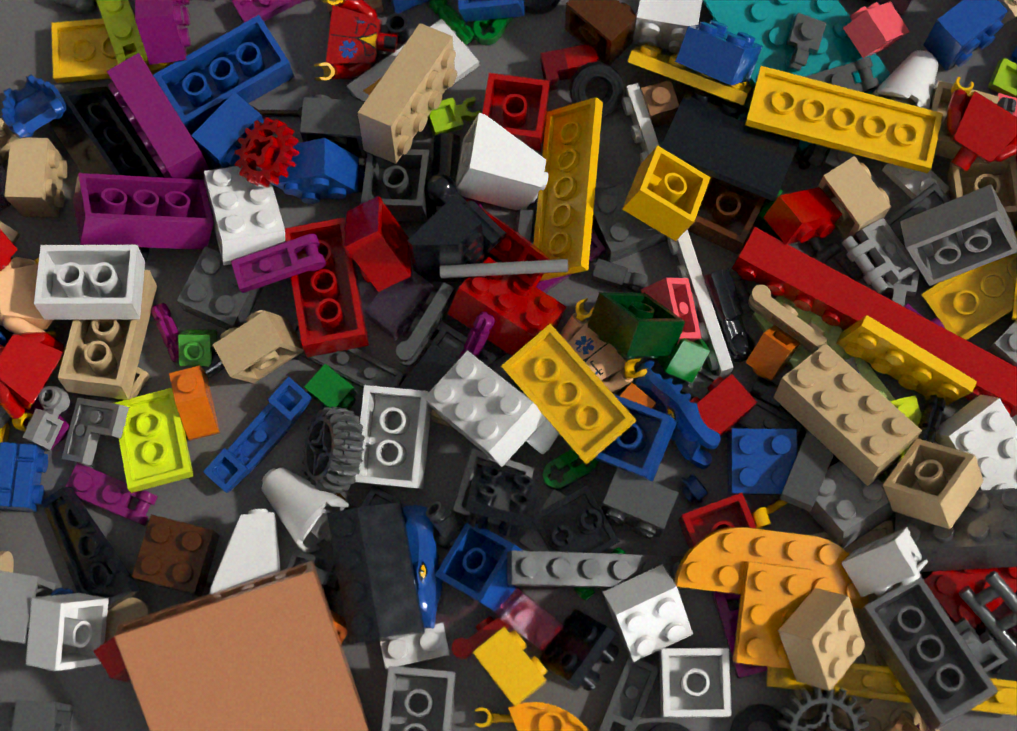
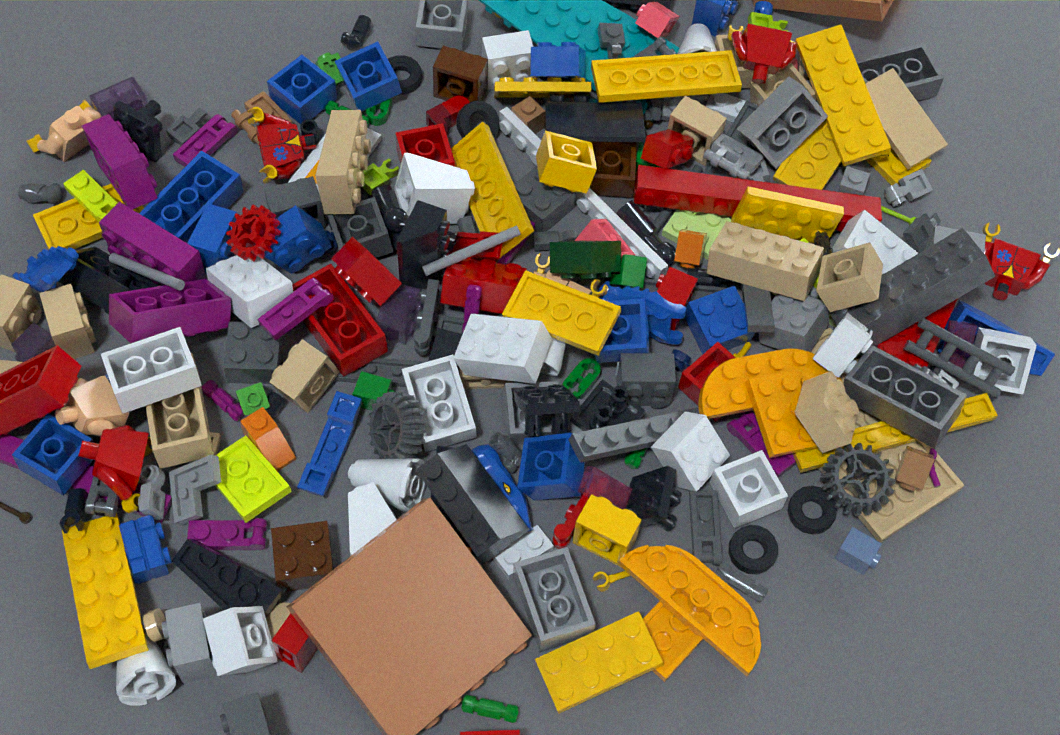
camera: 30 degrees left, 15 degrees down
(140, 149) = (147, 271): none -> light grey bar
(786, 319) = (688, 219): tan plate -> none

